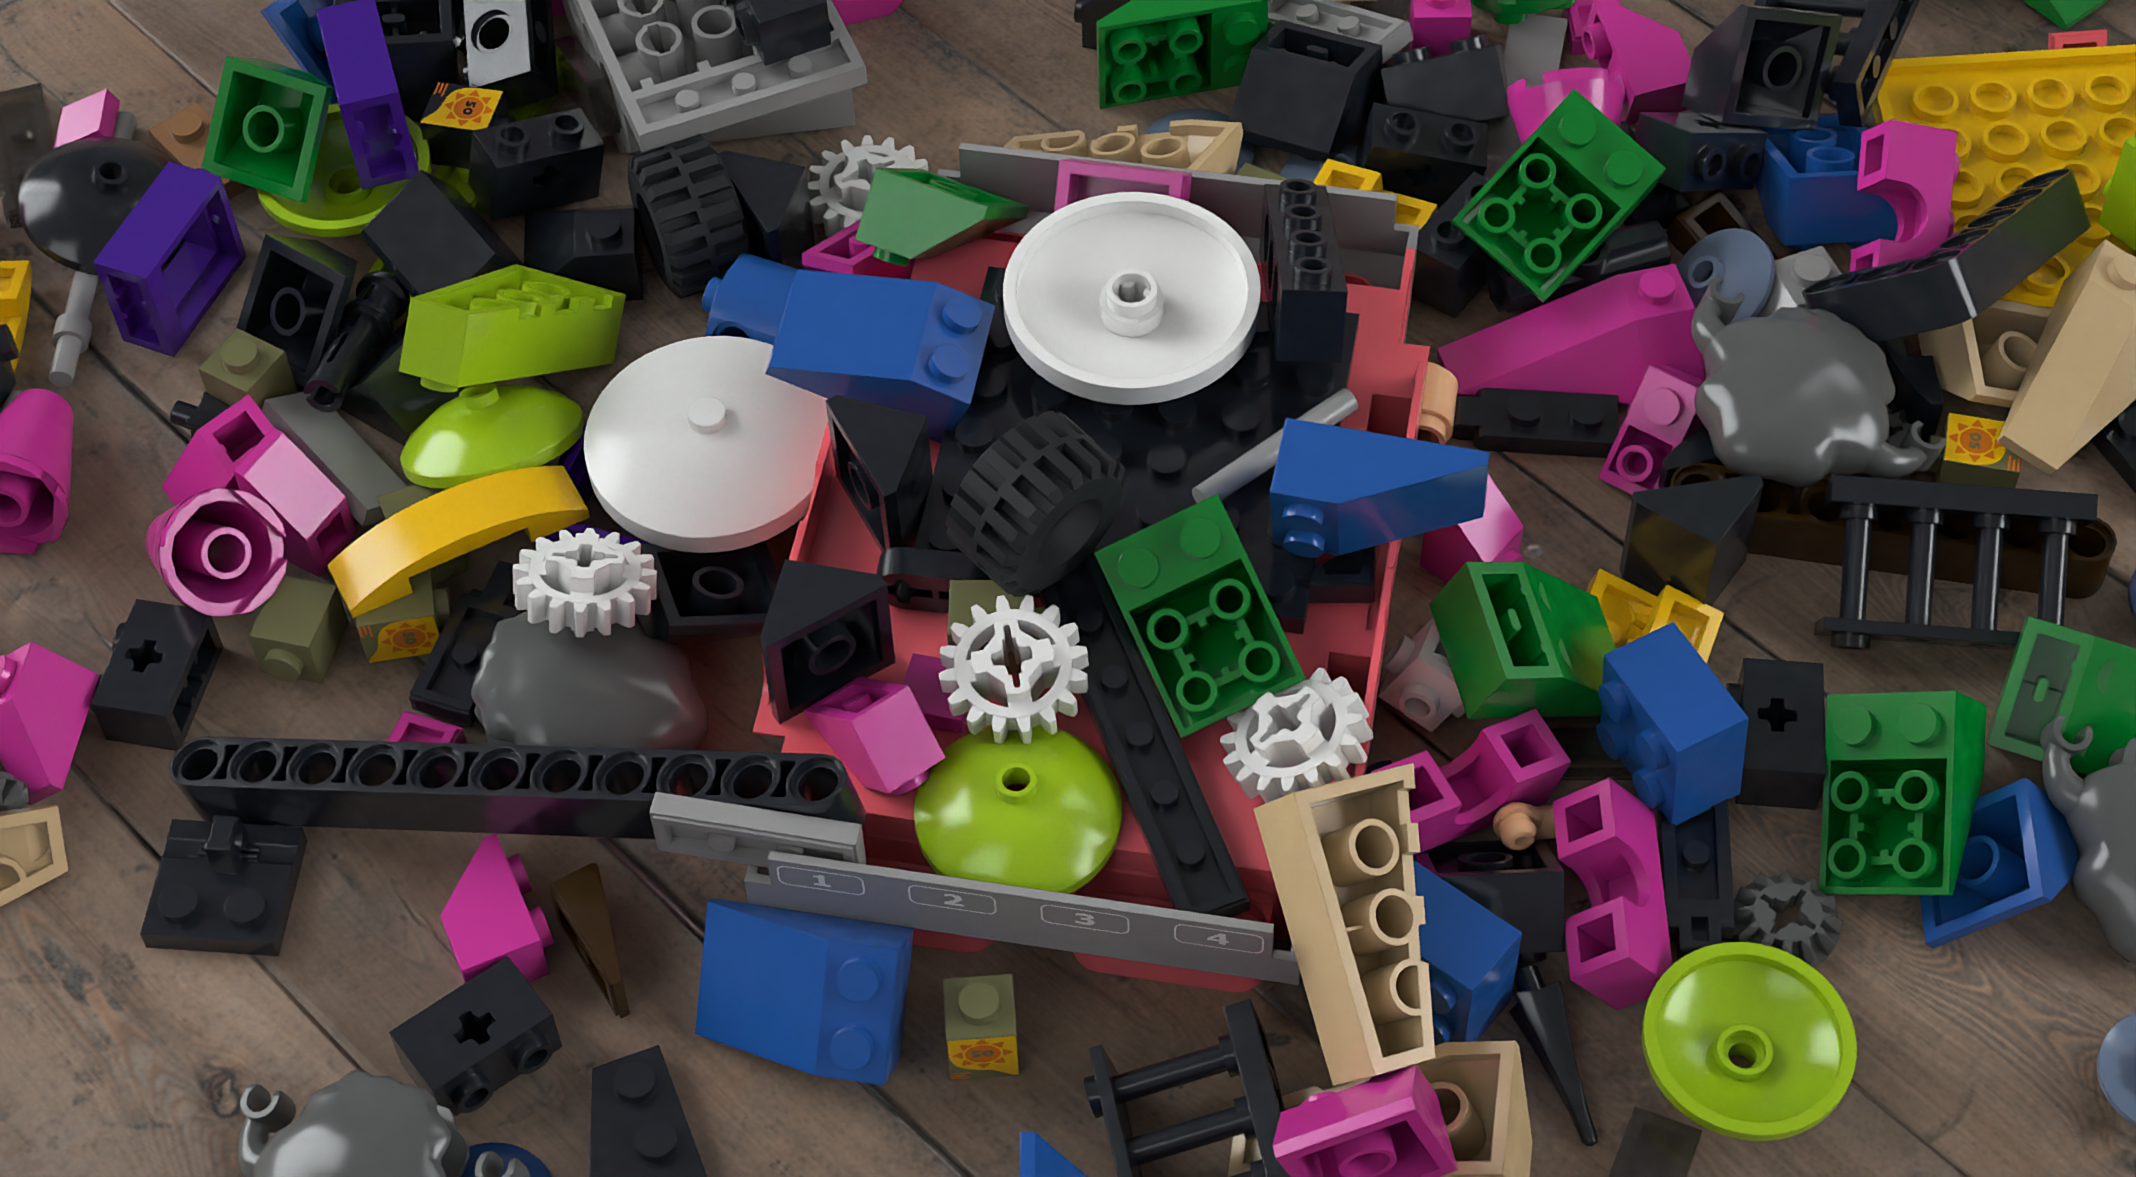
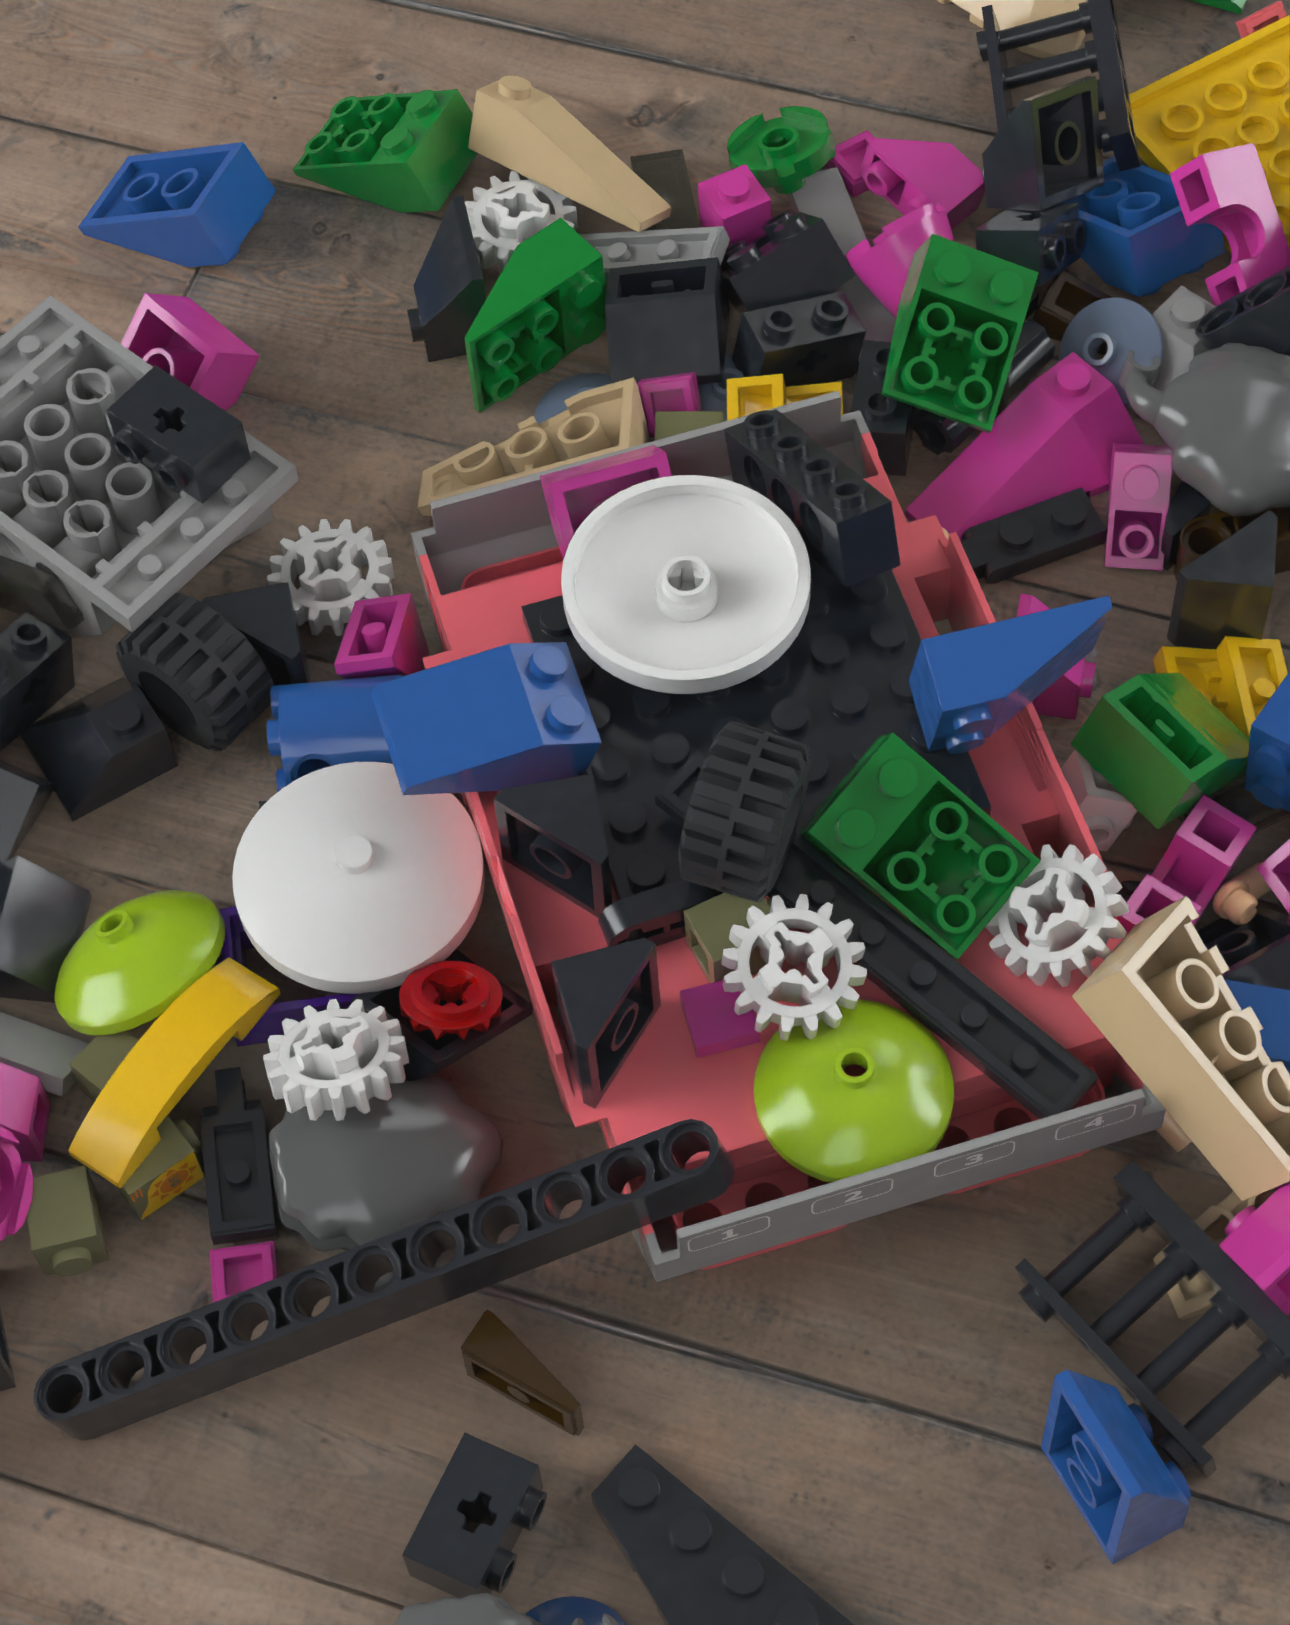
camera: 25 degrees left, 5 degrees up
(224, 887) = (145, 1494): black hinge -> none
(490, 919) = (421, 1406): dark pink slope -> none
(509, 328) = (105, 850): lime wedge -> none
(743, 577) = (450, 982): none -> red gear
(748, 833) = (647, 1221): light grey tile -> none
(805, 989) = (744, 1333): blue slope -> none
(878, 734) = (696, 1076): dark pink slope -> none
(927, 214) = (443, 580): green slope -> none
(981, 1026) = (906, 1290): olive brick -> none
(1265, 454) = (881, 666): light grey bar -> none
(1273, 154) = (668, 393): none -> dark pink tile
(1344, 578) = (1002, 755): black tile -> none

